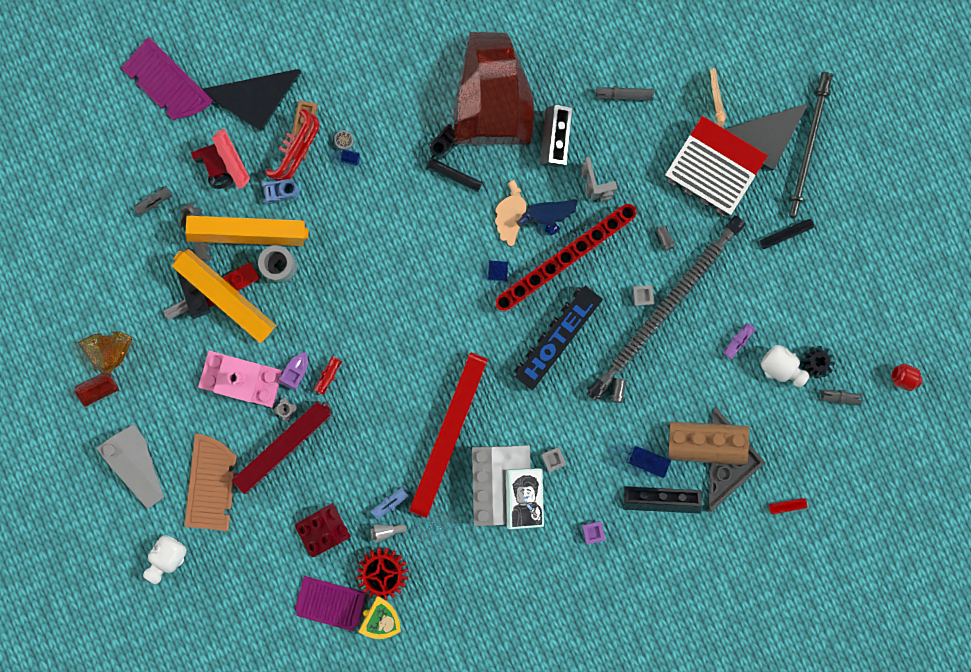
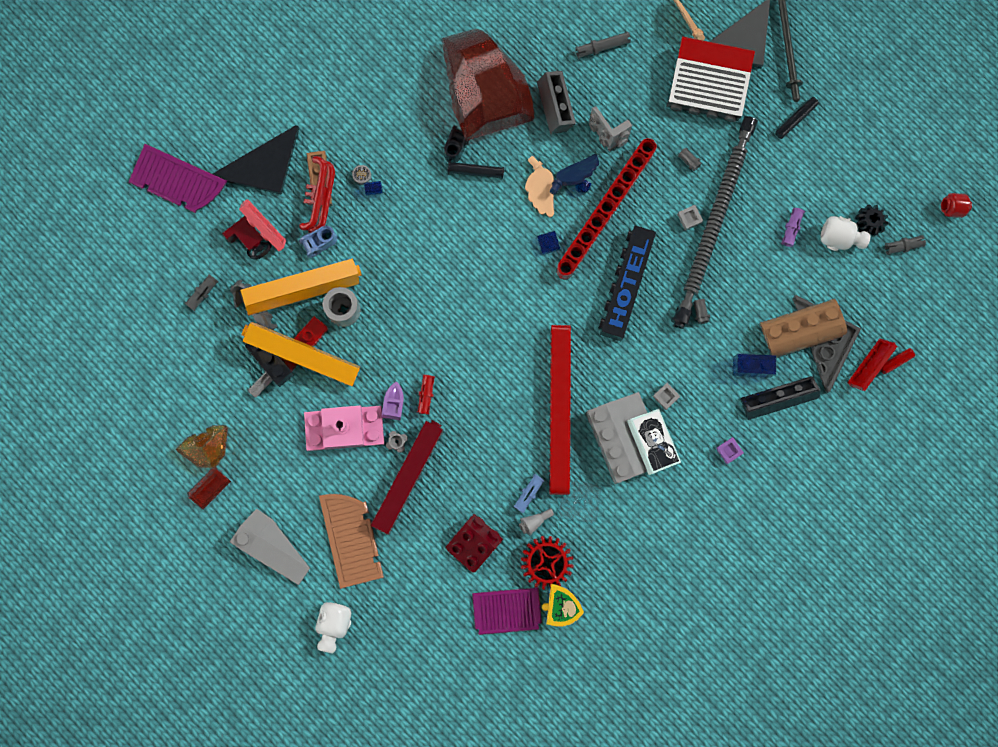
camera: 25 degrees left, 5 degrees down
(762, 501) = (872, 364): none -> red plate

